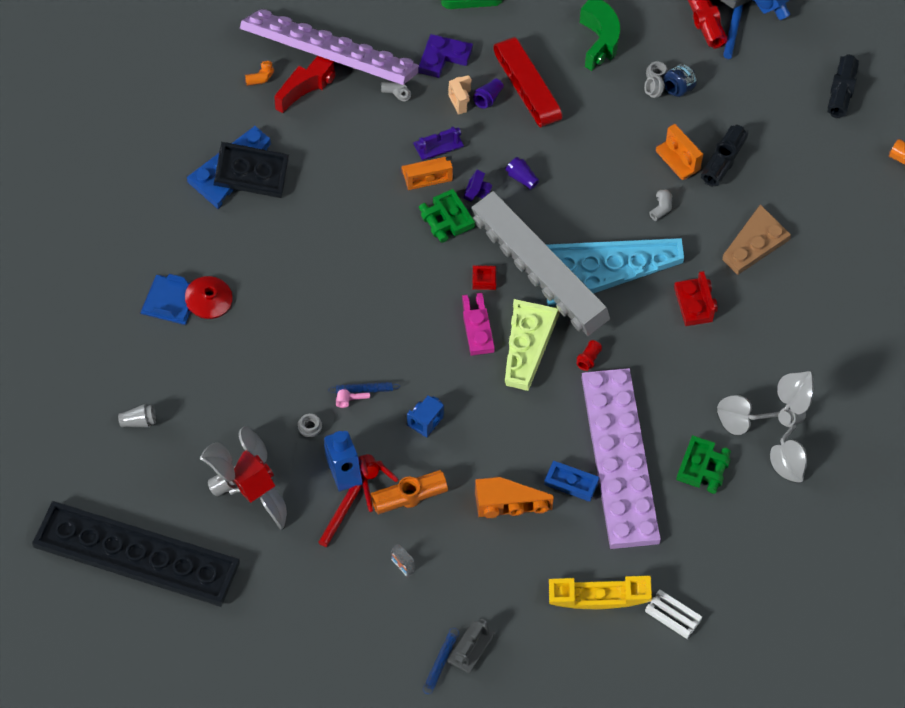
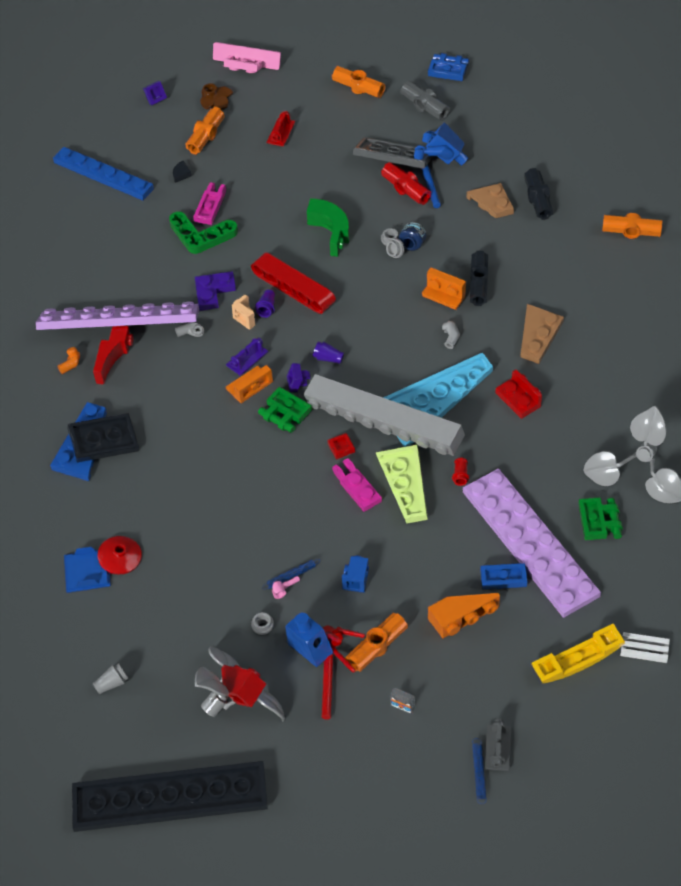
camera: 20 degrees left, 5 degrees down
(790, 73) = (493, 200): none -> medium nougat wing

